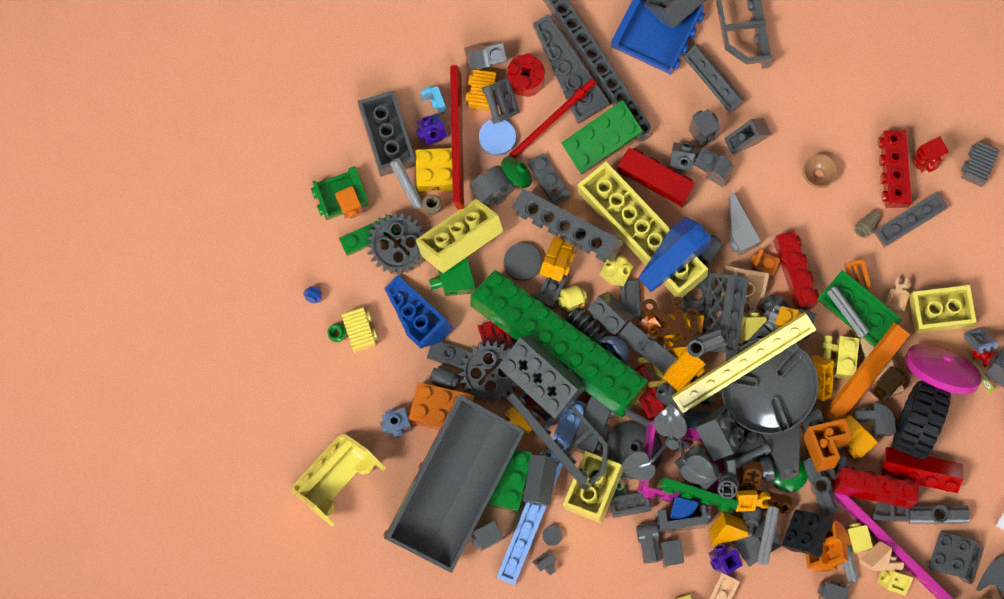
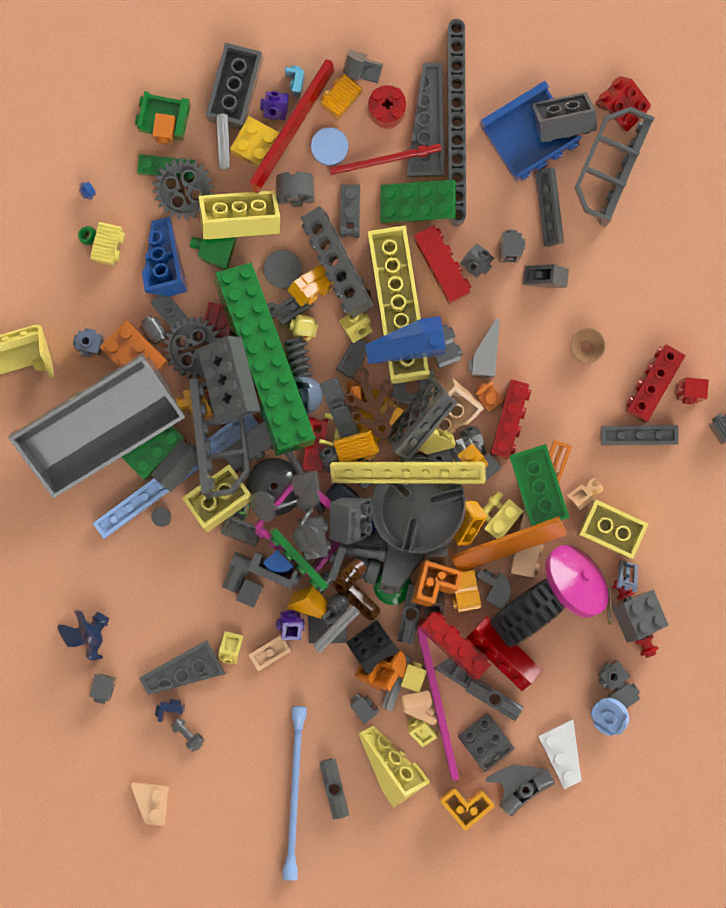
camera: 30 degrees right, 10 degrees up
(431, 200) = (233, 168): dark tan cone -> none
(486, 536) = (103, 485): dark grey brick -> none
(504, 97) = (355, 116): dark grey plate -> none
(516, 171) = (325, 187): green dish -> none
(545, 562) = (140, 535): dark grey tile -> none
(610, 313) = (327, 359): dark grey brick -> none
(707, 341) = (387, 436): dark grey piece -> none
(717, 167) = (498, 286): dark grey brick -> none
(726, 482) = (327, 568): dark grey wheel -> none
(750, 499) = (339, 589): light orange plate -> none
(848, 311) = (526, 483): light grey axle -> none
(867, 224) = (598, 416): dark tan cone -> none
(887, 383) = (519, 565): dark brown brick -> none

